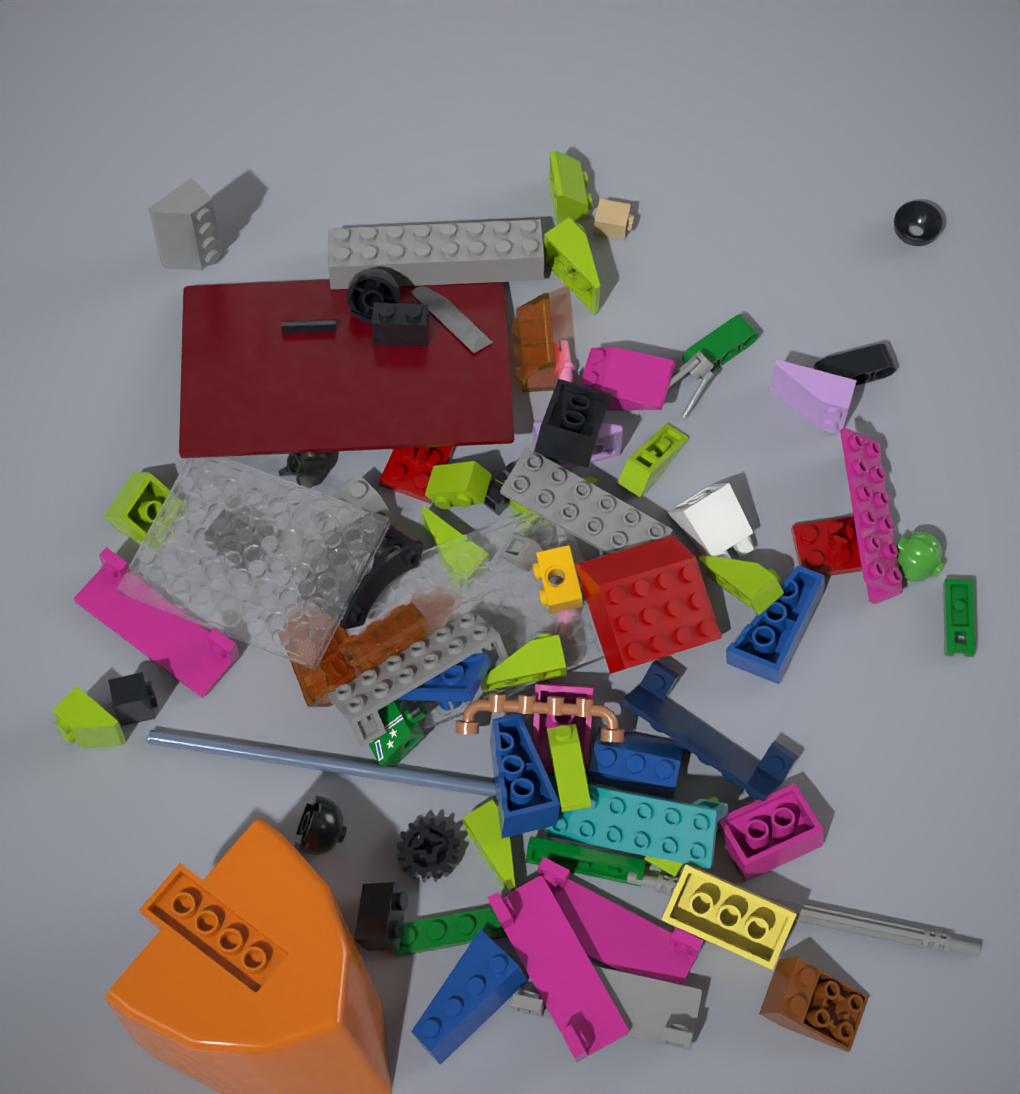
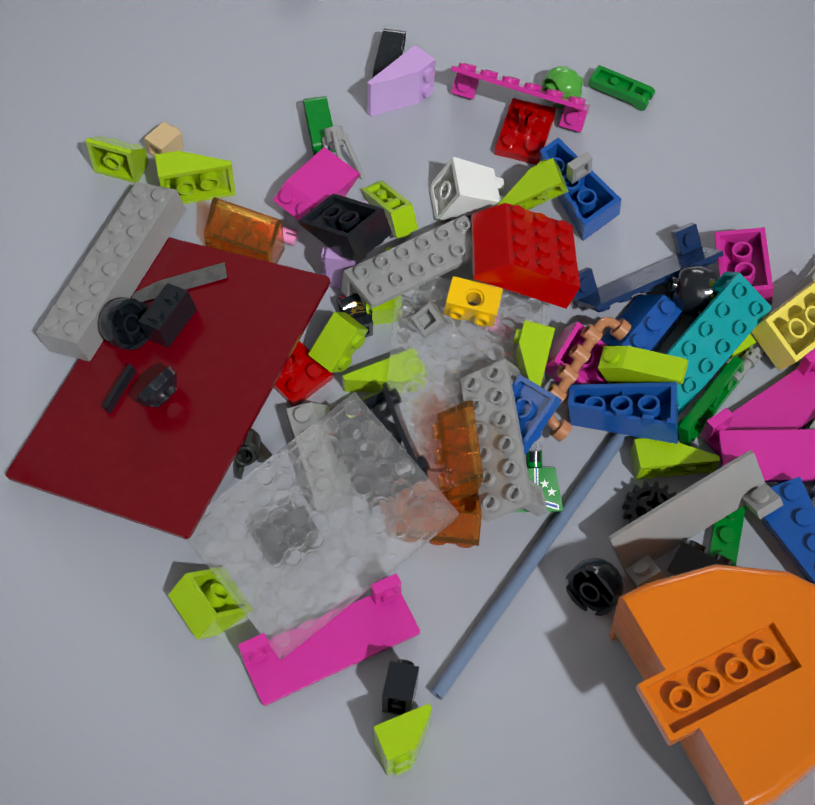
camera: 65 degrees left, 5 degrees down
(313, 357) = (159, 389): none -> black piece
(426, 877) = (689, 514): none -> light grey bracket
(697, 781) = (691, 289): none -> black cylinder
(786, 610) = (579, 167): none -> light grey tile

